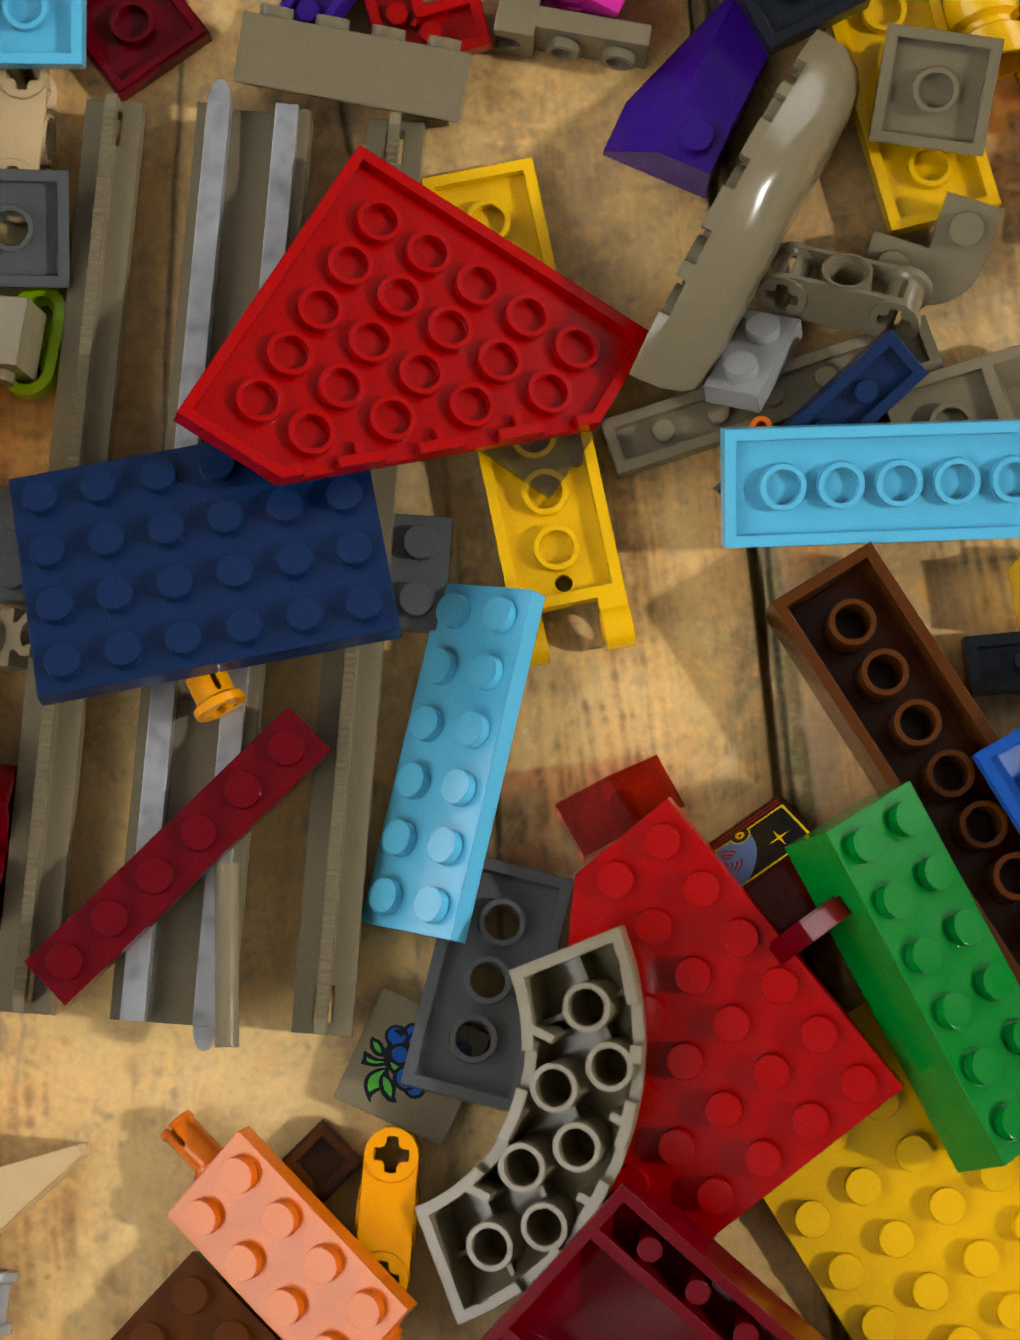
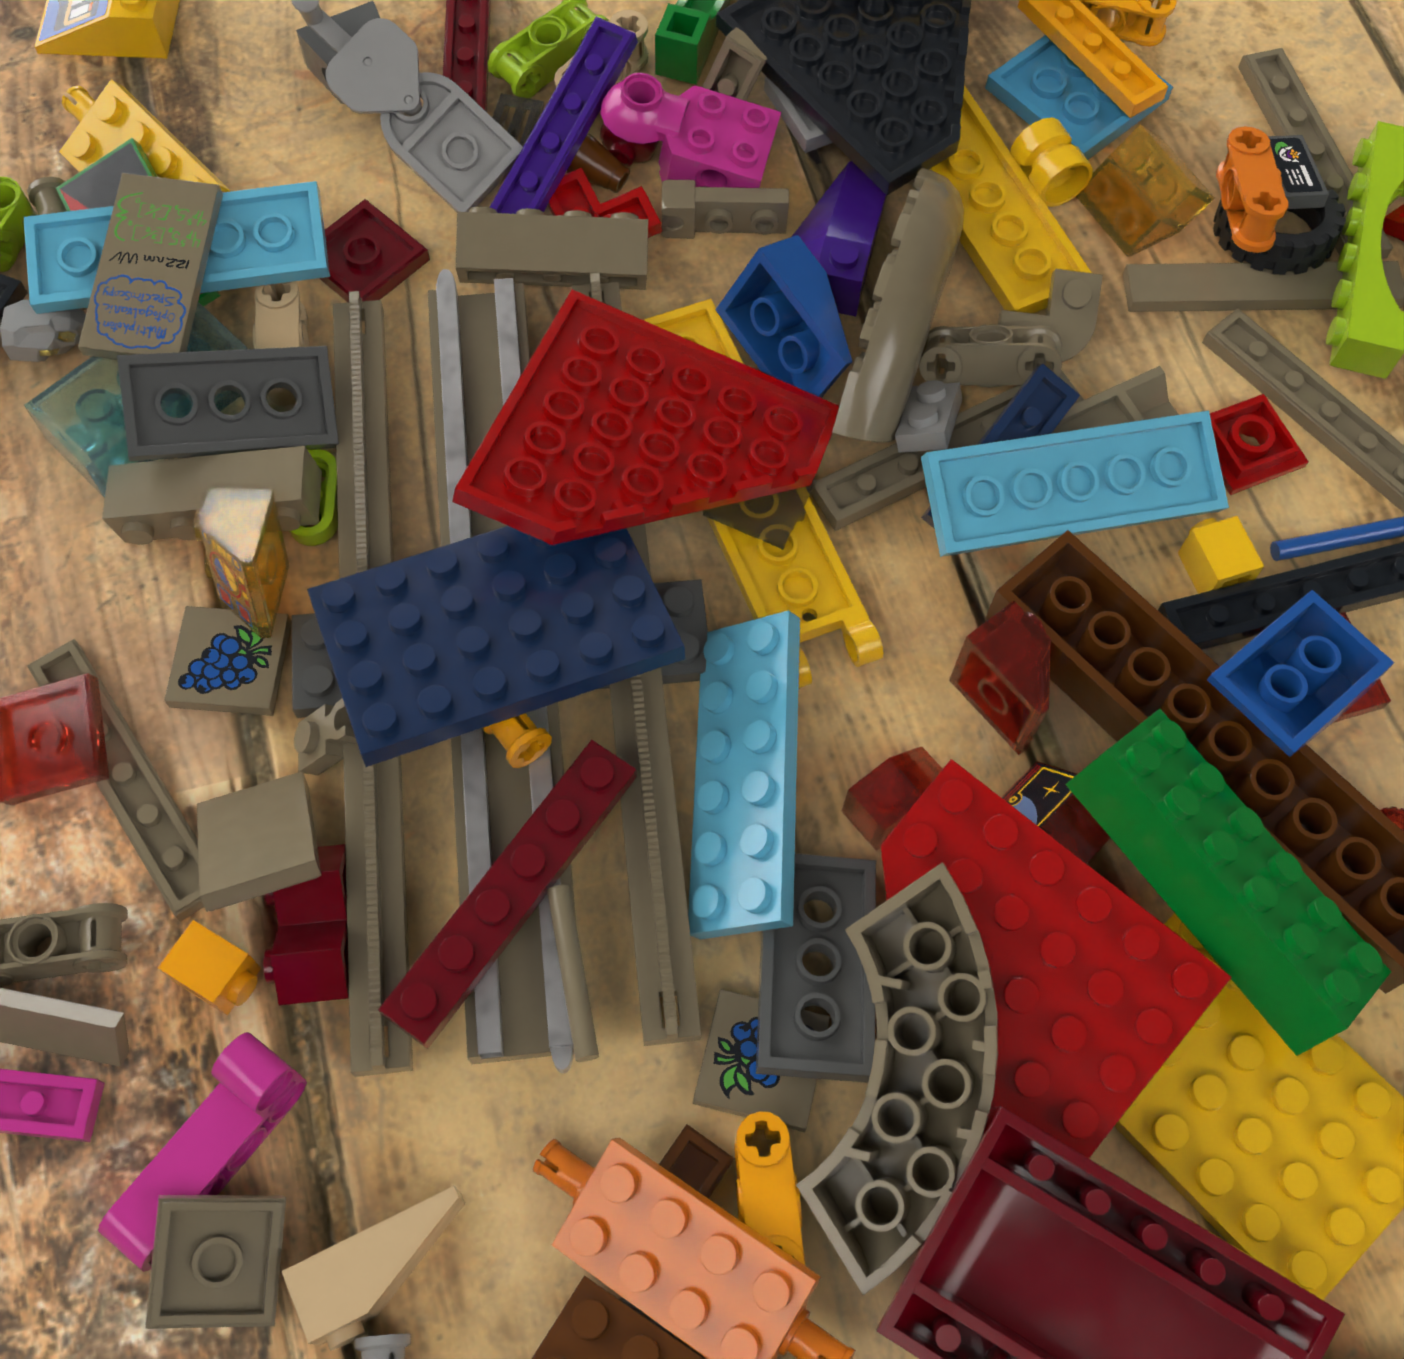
camera: 15 degrees left, 15 degrees down
(612, 212) = (788, 317): none -> blue slope
(763, 696) = (1007, 674): none -> clear red slope
(809, 929) = (1109, 845): dark red tile -> none
(935, 89) = (1025, 197): dark tan plate -> none

